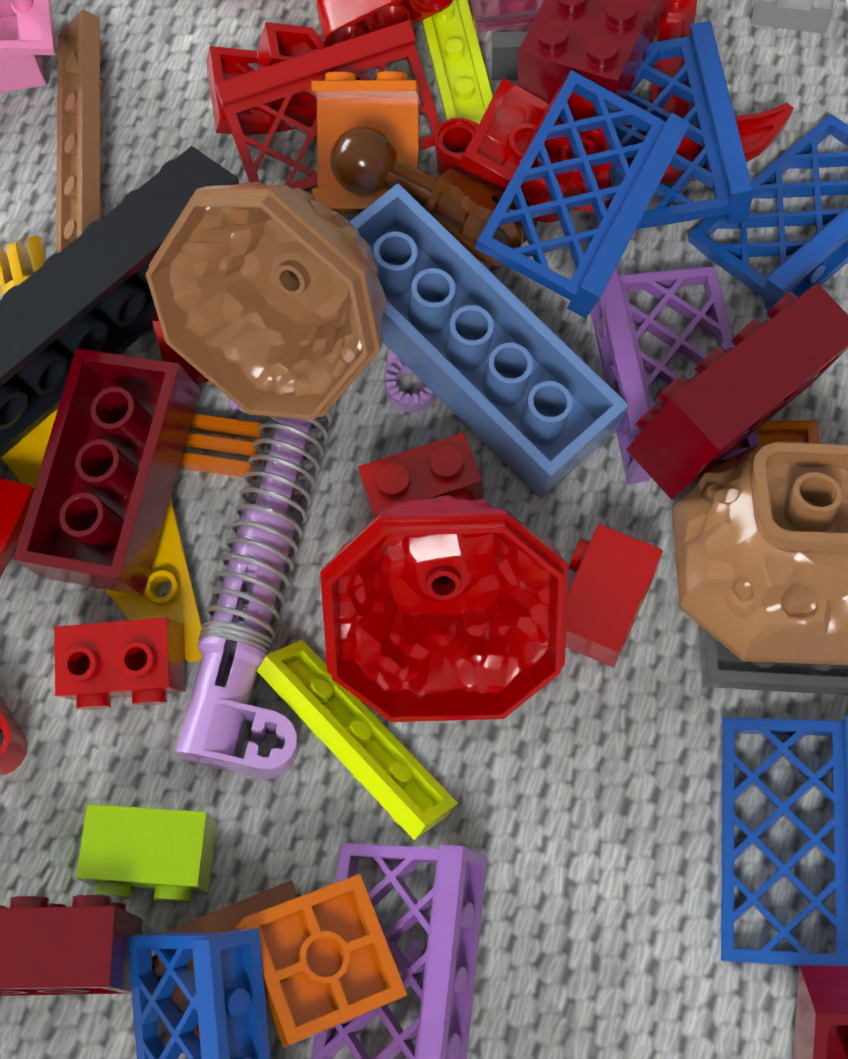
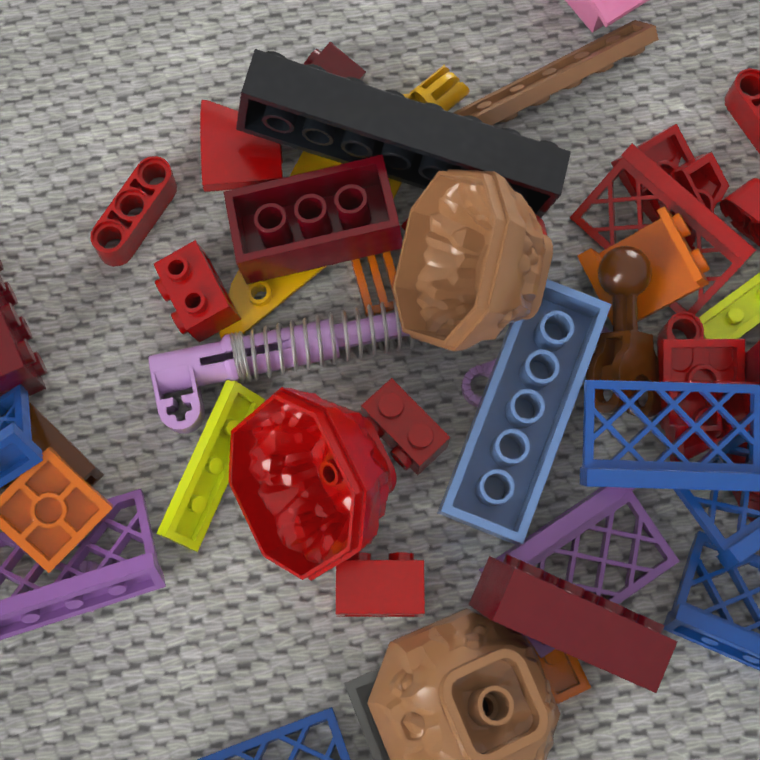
camera: 55 degrees right, 5 degrees up
(147, 851) = (80, 370): lime brick -> none

